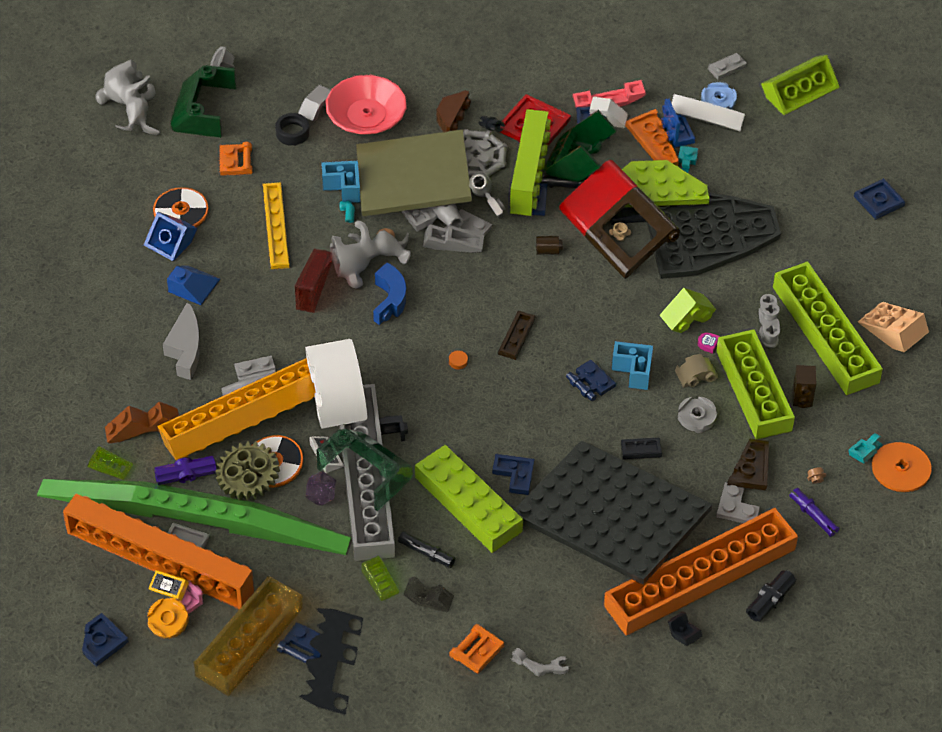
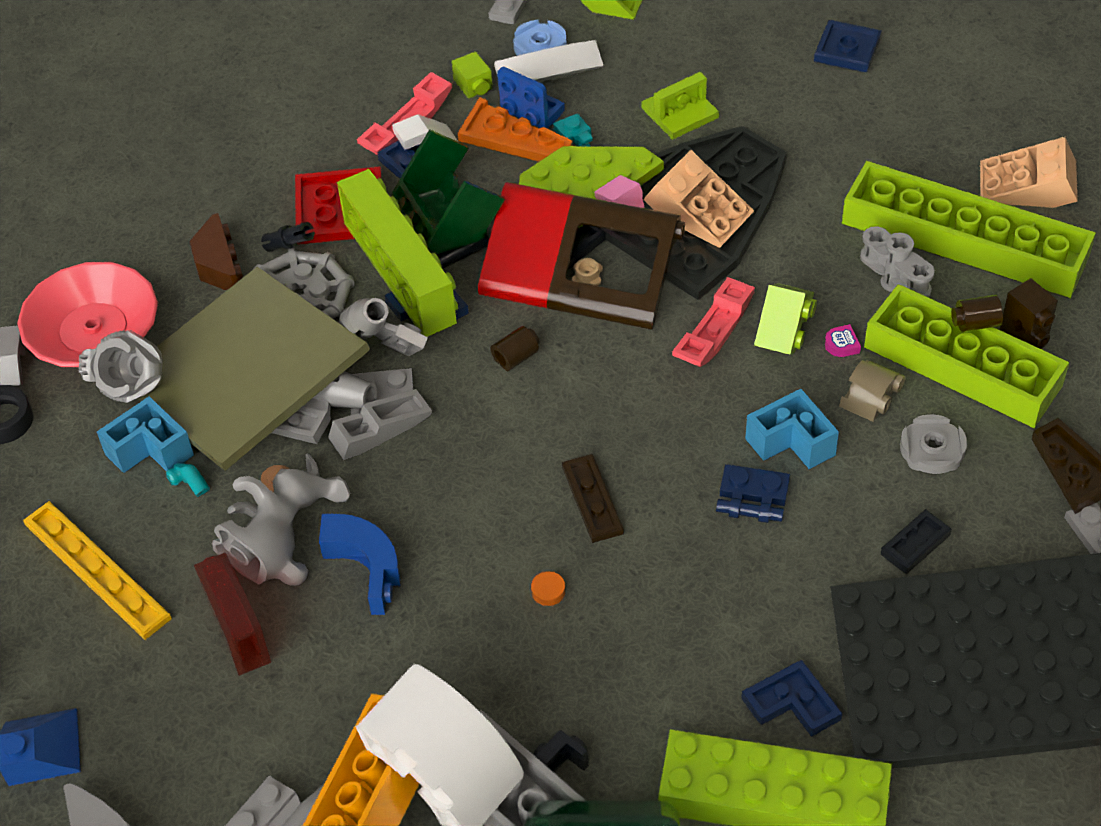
camera: 35 degrees left, 0 degrees up
(358, 139) = (123, 366): none -> light grey helmet
(651, 297) = (717, 324): none -> coral slope
(663, 91) = (472, 75): none -> lime brick
(667, 202) = (621, 191): none -> bright pink brick
(704, 229) = (702, 200): none -> light nougat slope
(754, 177) = (681, 106): none -> lime bracket
(770, 365) = (977, 313): none -> dark brown brick

